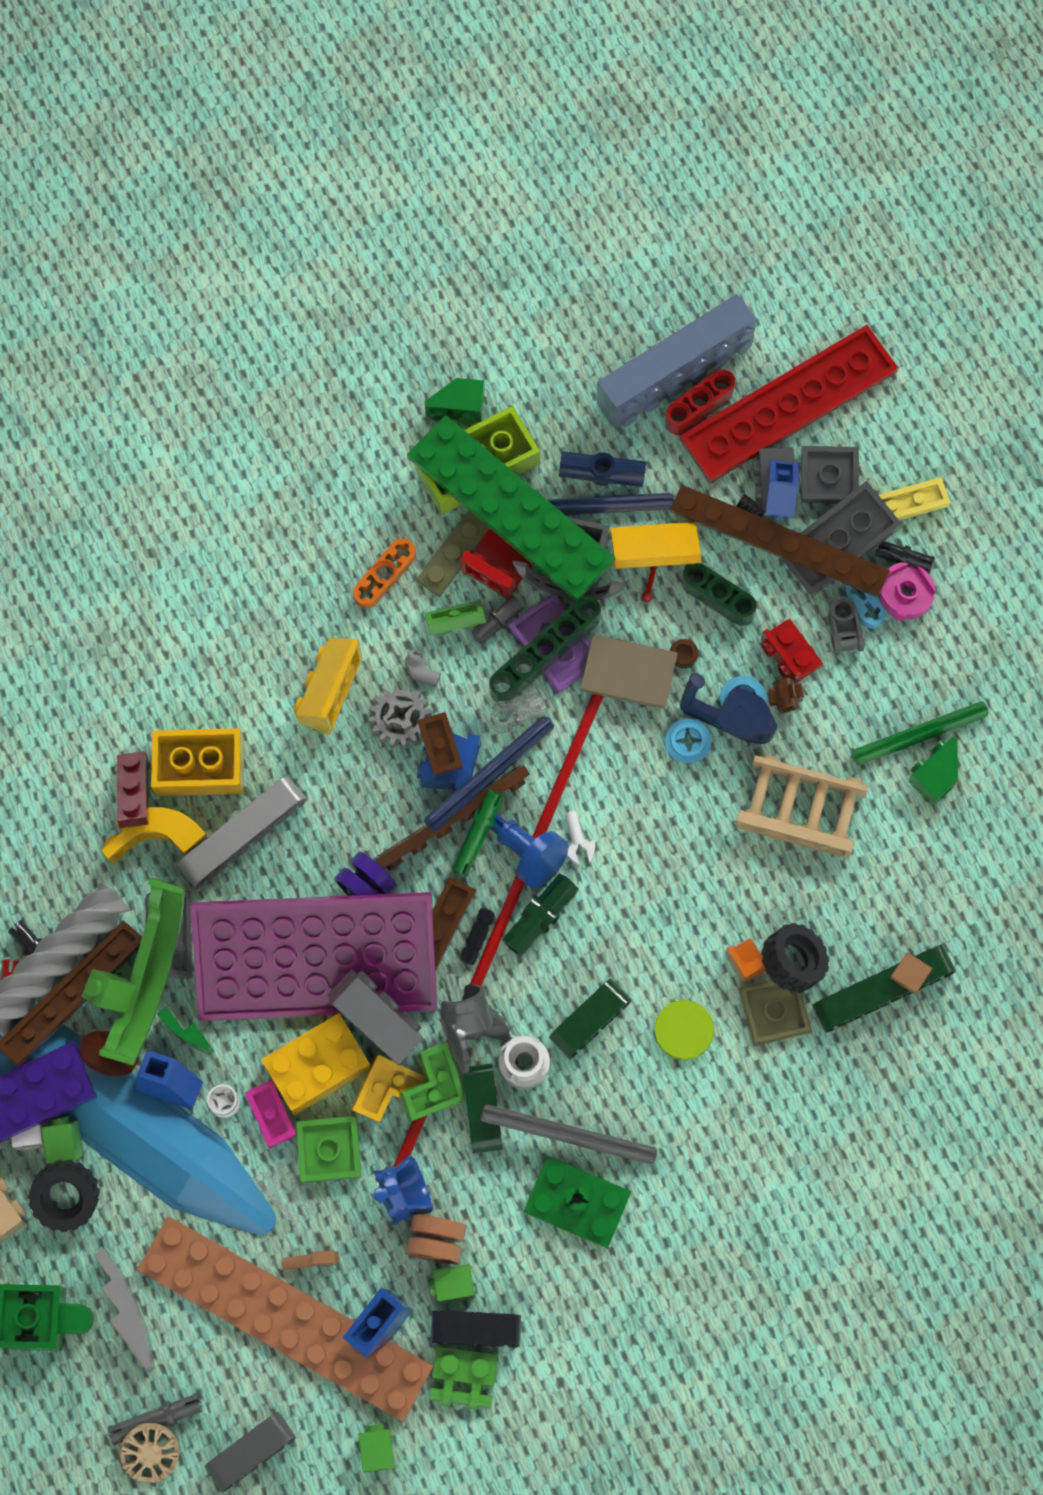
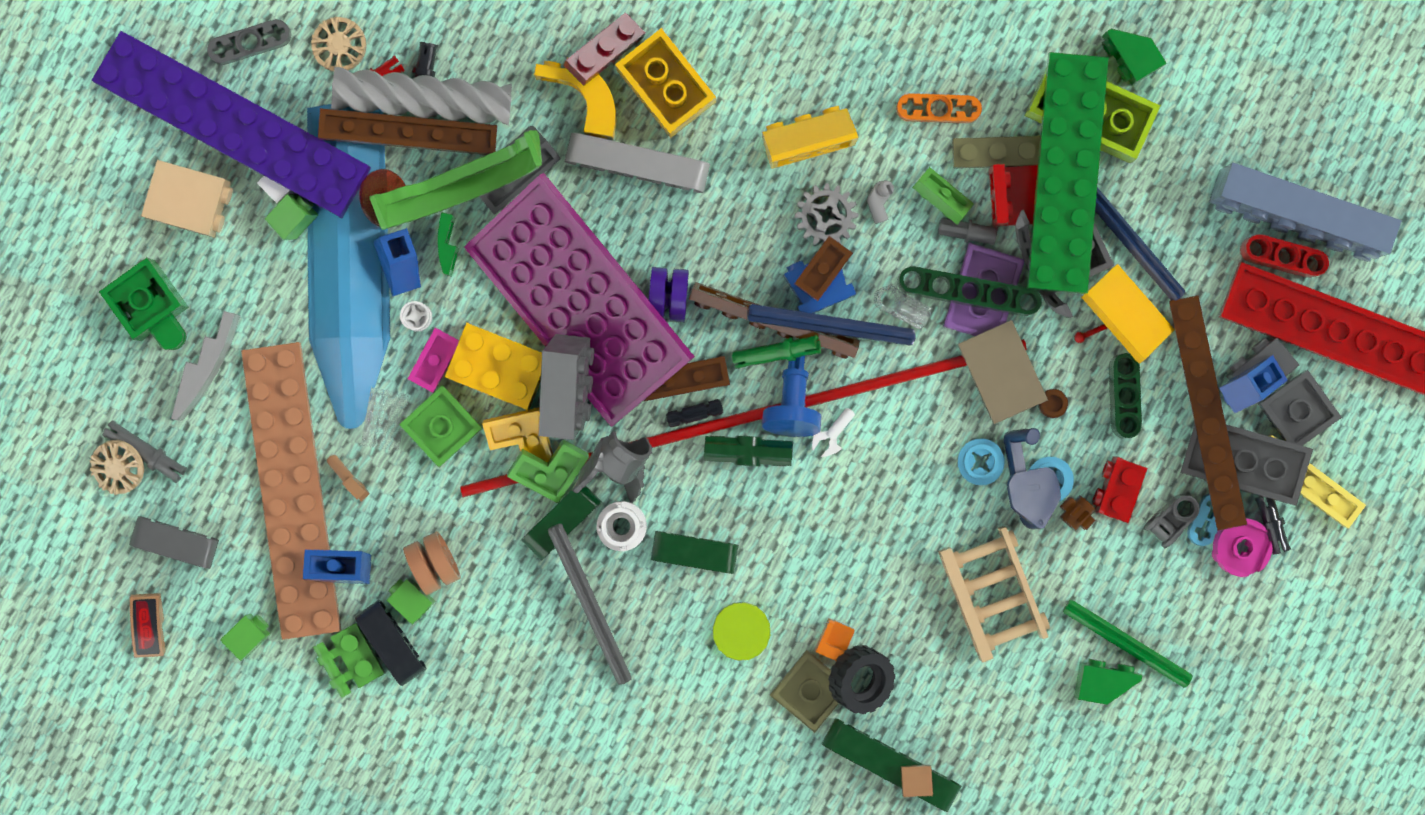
camera: 50 degrees right, 15 degrees up
(58, 1218) = (233, 259): black tyre -> none
(108, 991) = (430, 160): bright green brick -> none
(403, 1190) = (449, 510): blue hair -> none
(577, 1202) = (545, 647): green plate -> none
(584, 468) = (1172, 237): dark blue piece -> none
(748, 504) = (1221, 365): black sticker -> none

